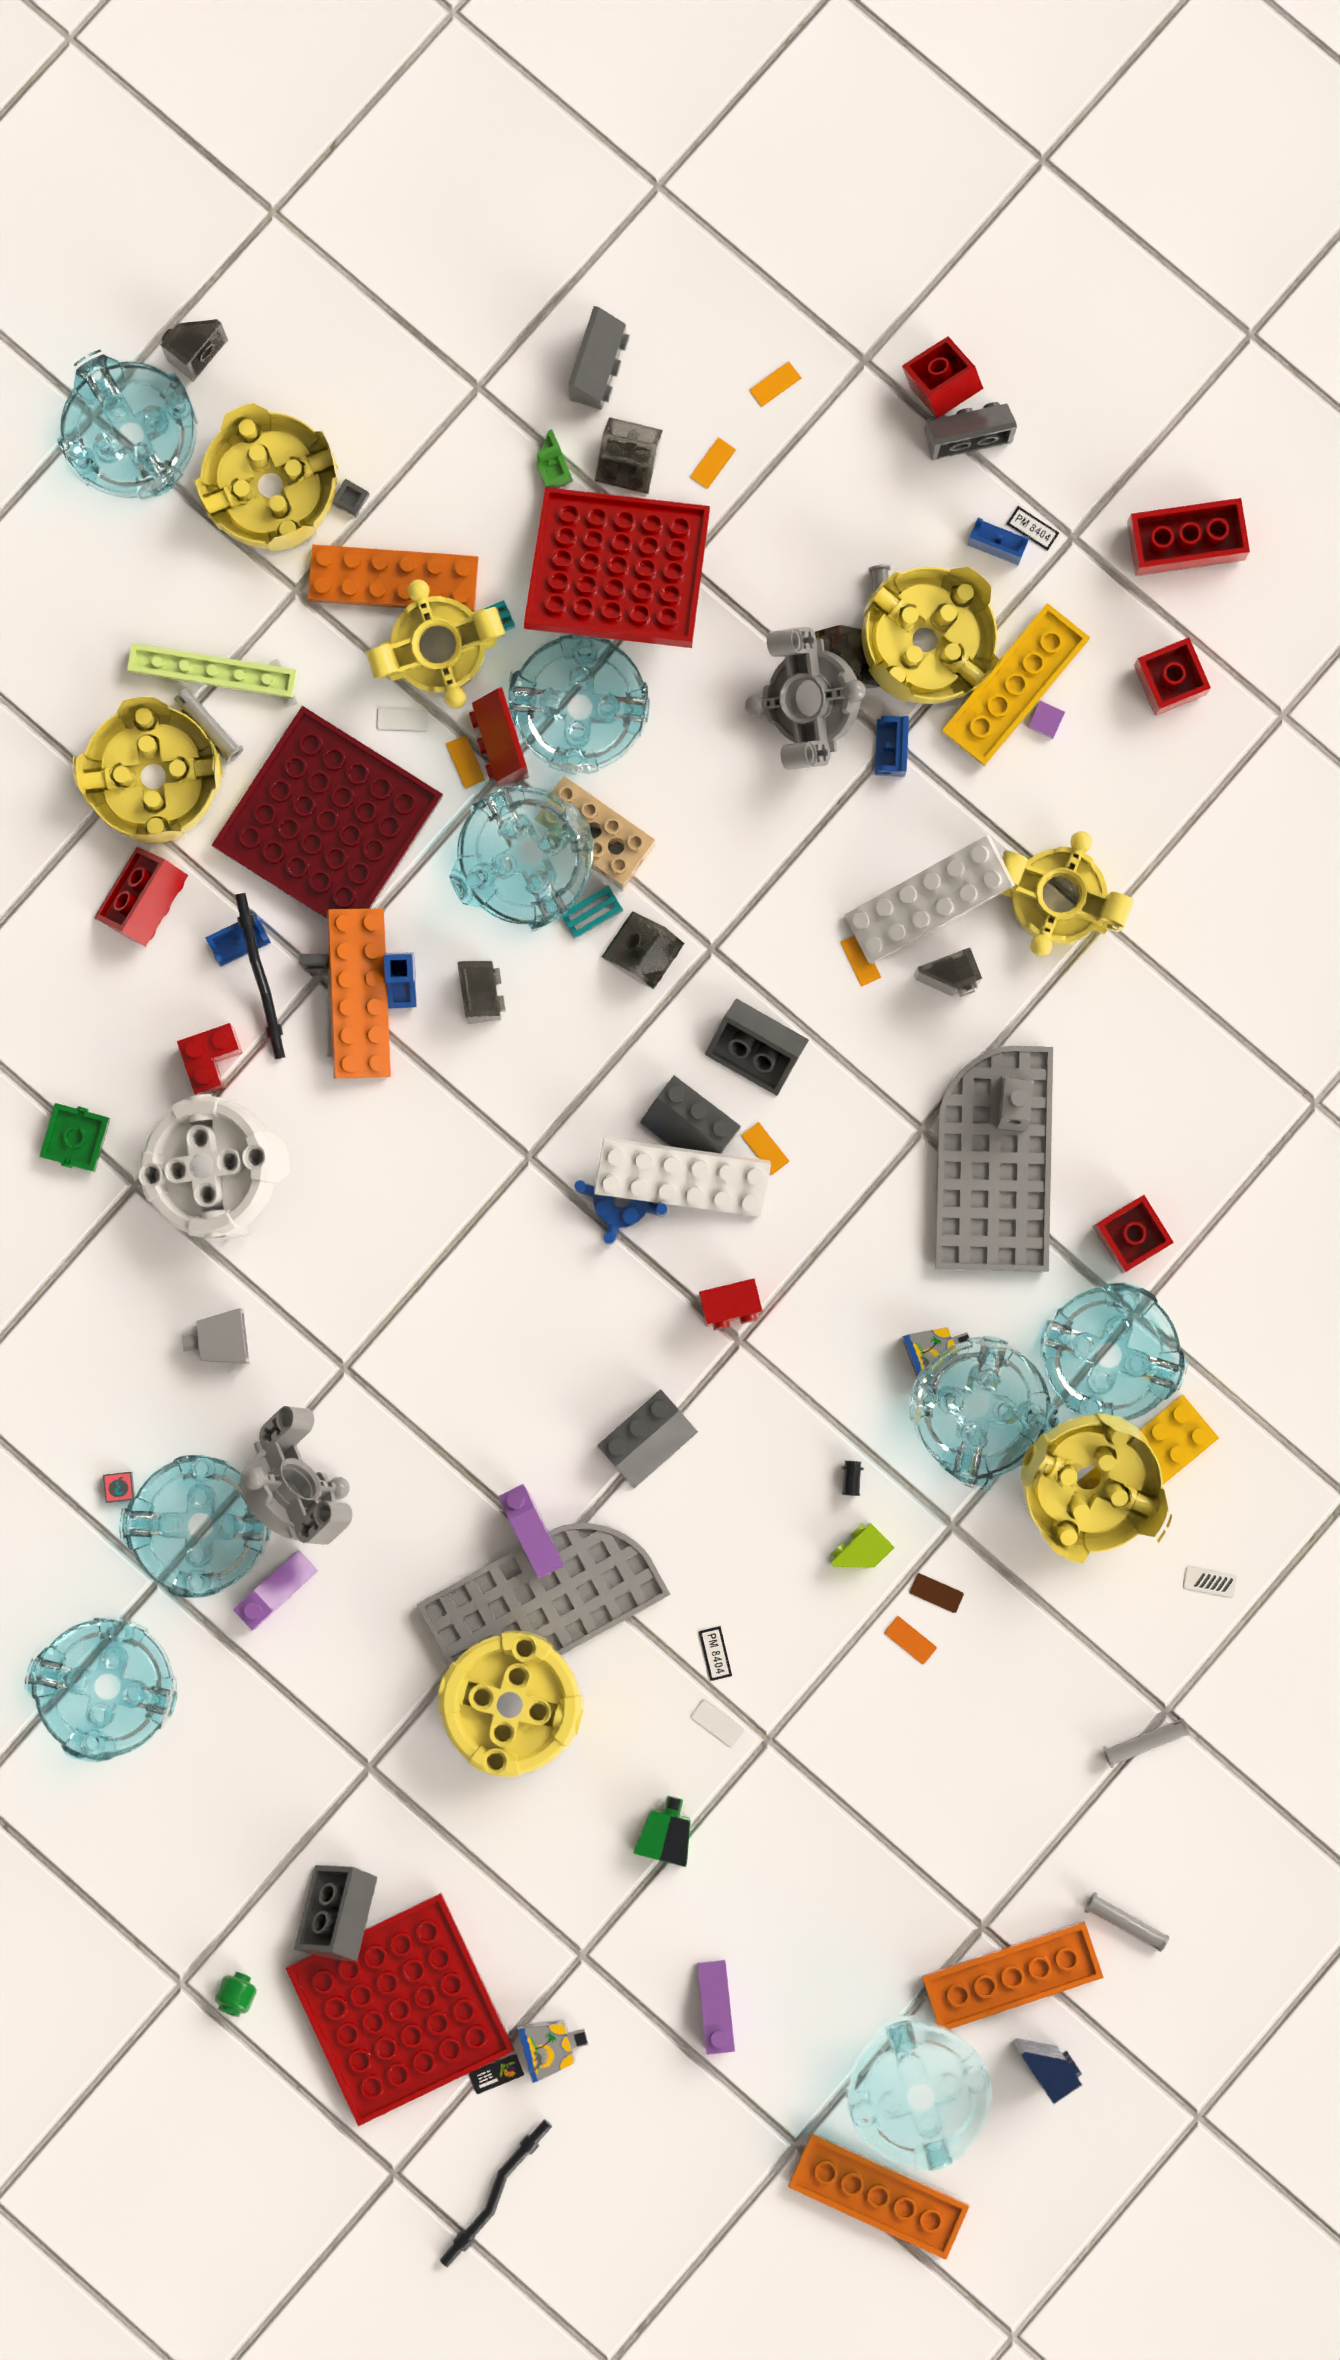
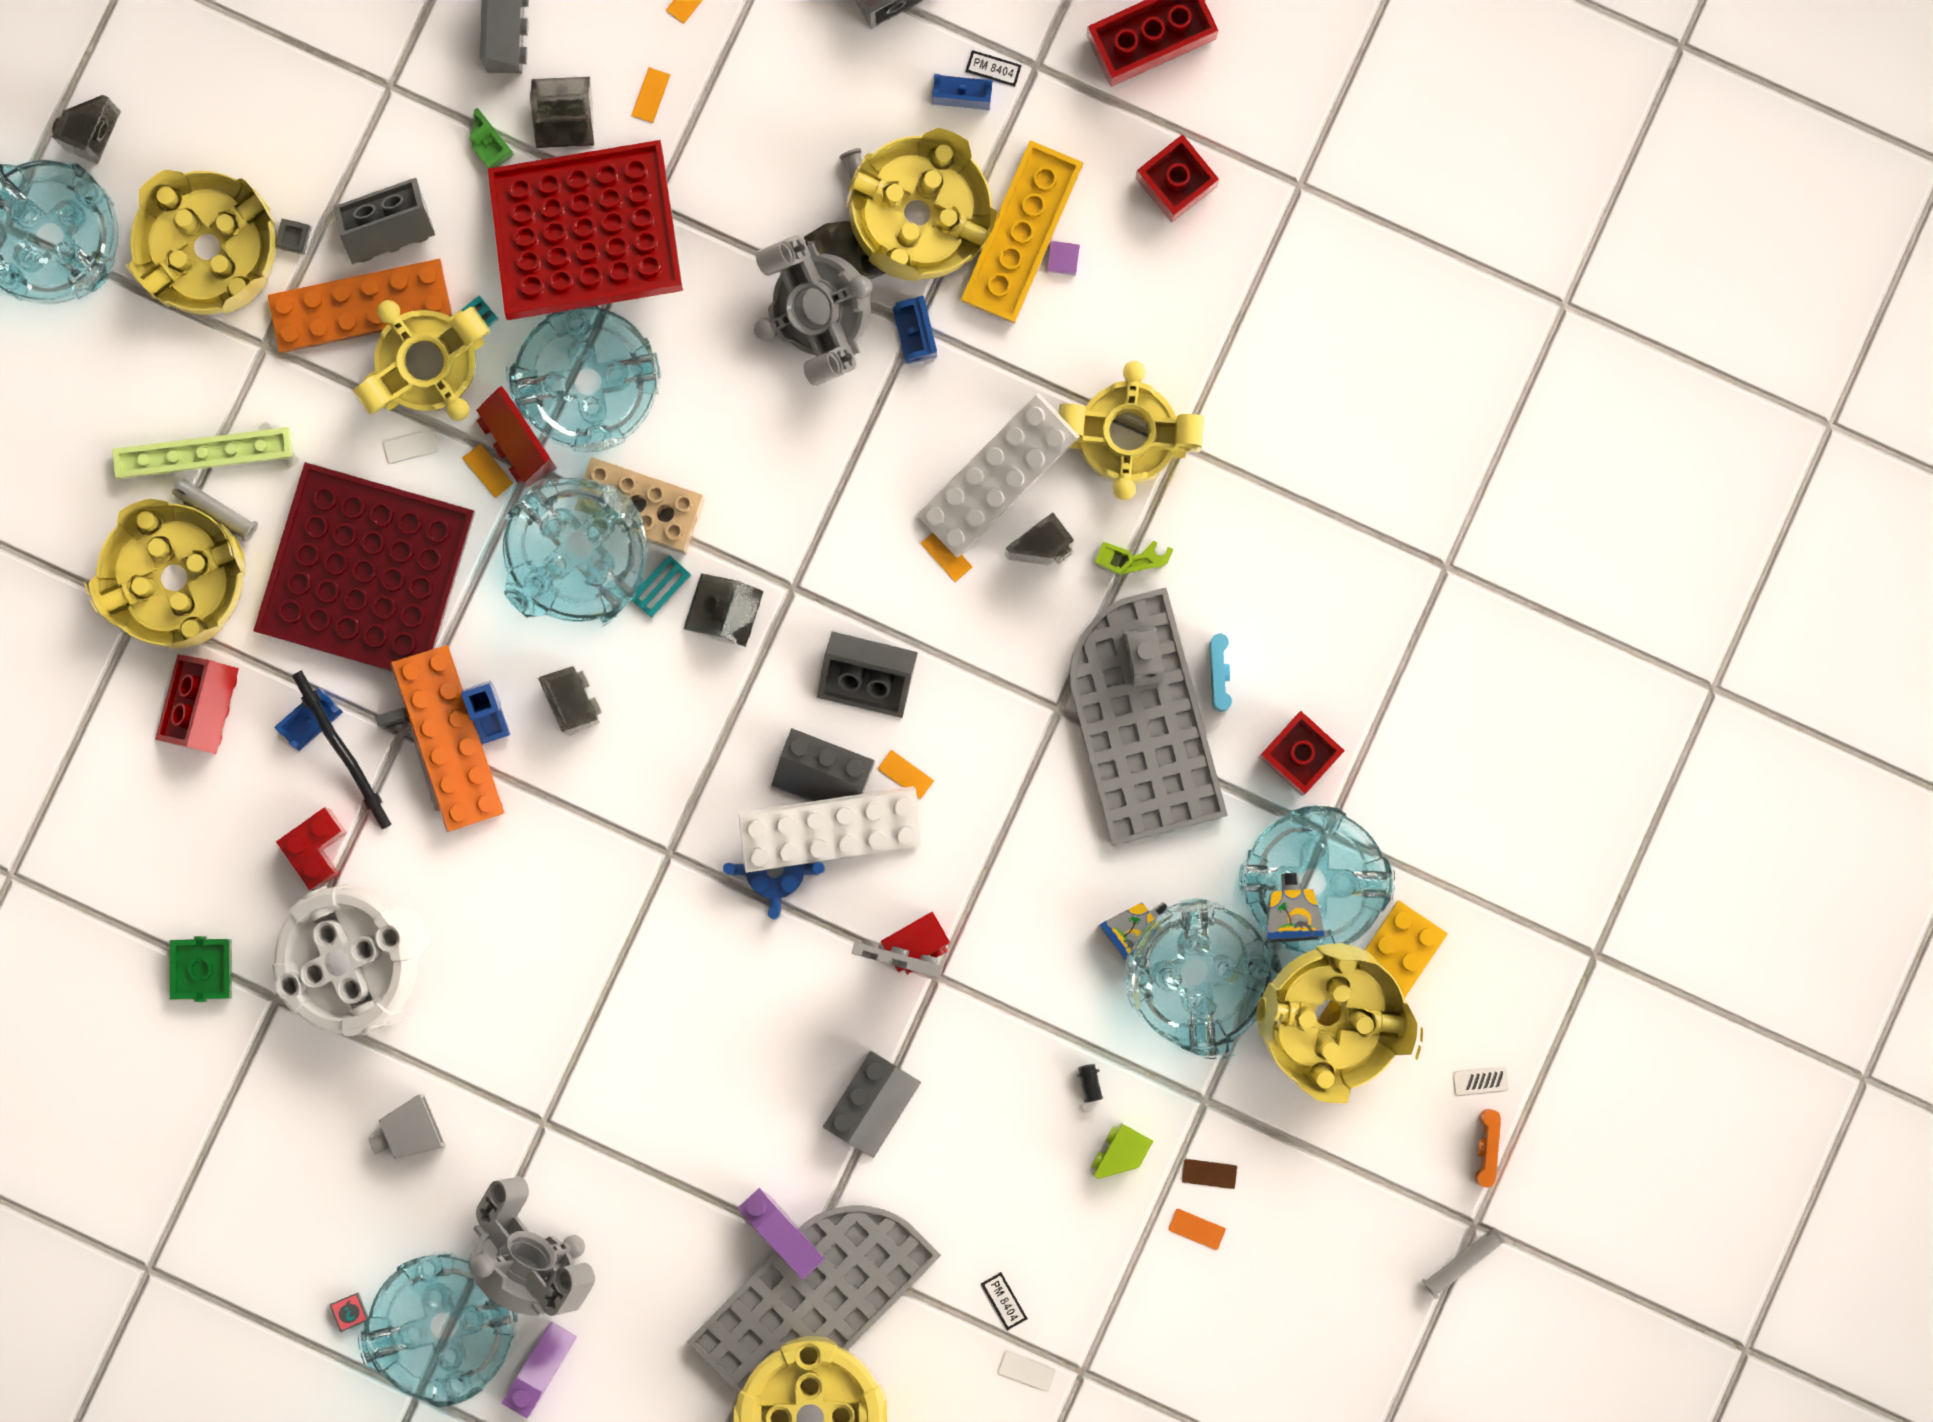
camera: 20 degrees left, 0 degrees up
(437, 508) = (384, 221): none -> dark grey slope
(710, 1310) = (897, 957): none -> light grey wing
(1033, 1017) = (1136, 563): none -> lime piece
(1079, 1139) = (1219, 673): none -> medium azure plate
(1083, 1377) = (1293, 913): none -> torso
(1199, 1644) = (1488, 1148): none -> orange plate

